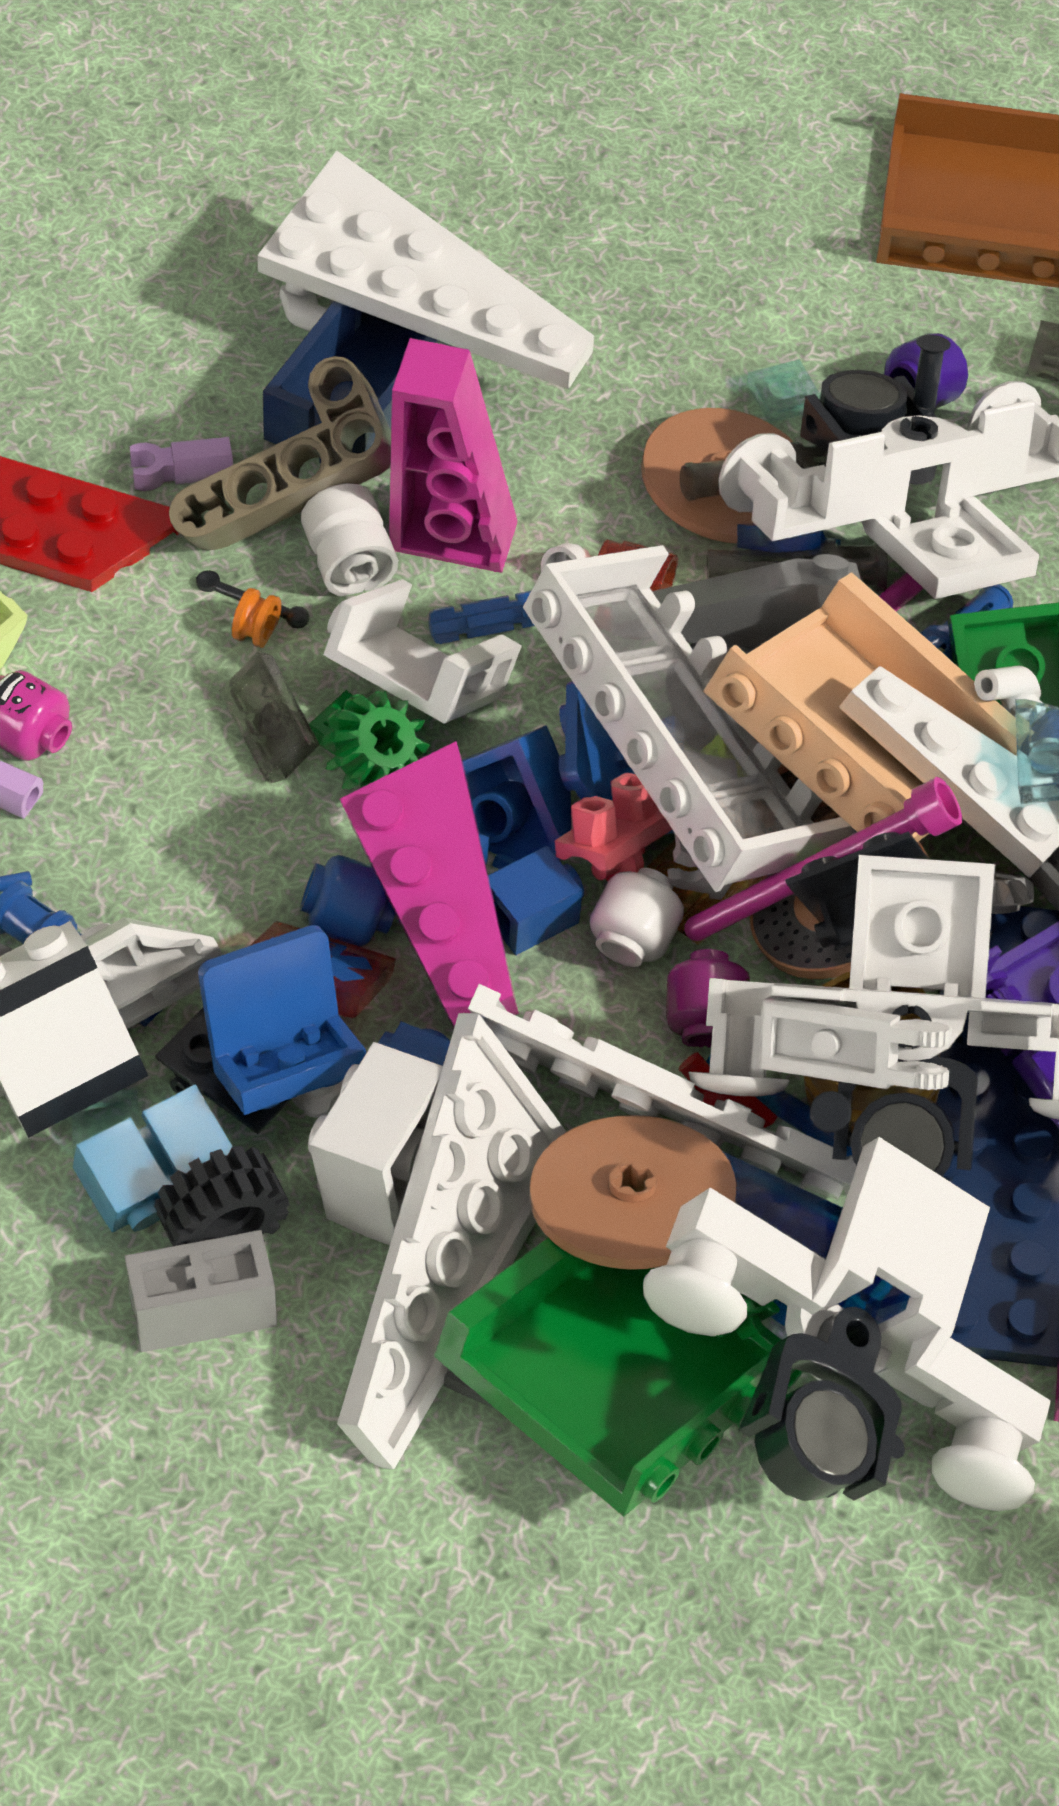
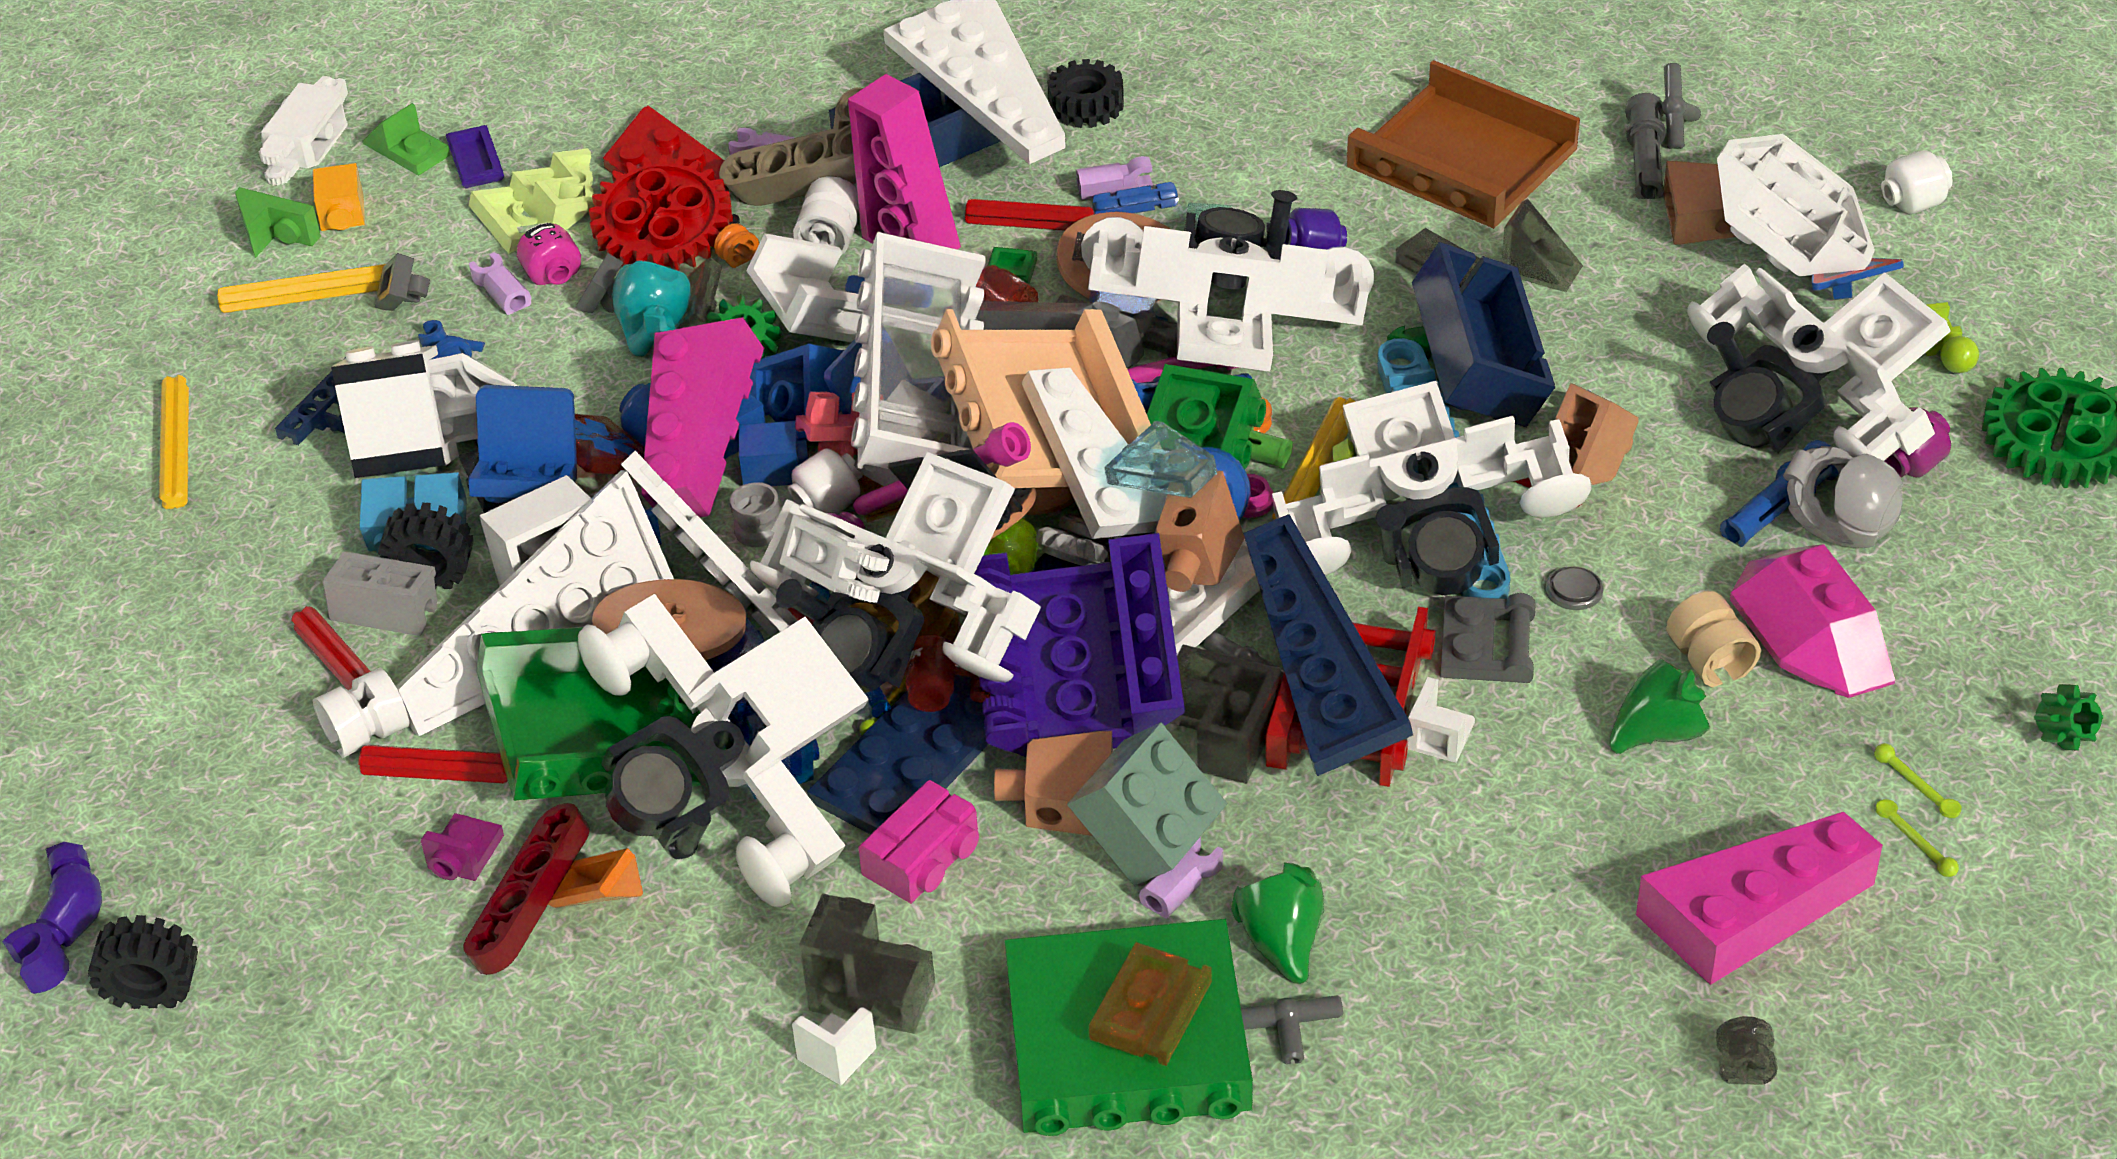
camera: 35 degrees right, 10 degrees down
(73, 601) = (660, 213): none -> red gear
(131, 737) = (601, 287): none -> dark grey tile
(201, 1402) = (328, 646): none -> red axle
(230, 747) = (649, 302): none -> teal piece
(318, 1467) = (364, 711): none -> white wheel
(446, 1500) = (432, 764): none -> red axle
(529, 239) = (1101, 82): none -> black tyre
(575, 450) = (1024, 214): none -> red axle
(575, 1601) = (461, 847): none -> magenta bracket
(580, 989) = (755, 513): none -> light grey wheel
(600, 522) = (1017, 261): none -> green tile
(635, 368) = (1113, 177): none -> lavender bar
(679, 389) = (1136, 199): none -> blue axle
(695, 1621) = (502, 934): none -> dark red beam
(785, 1579) = (599, 880): none -> orange slope
(971, 852) = (1077, 525): none -> flat silver piece
(993, 1136) = (932, 676): none -> clear red piece
(1007, 685) = (1165, 411): white arm -> none

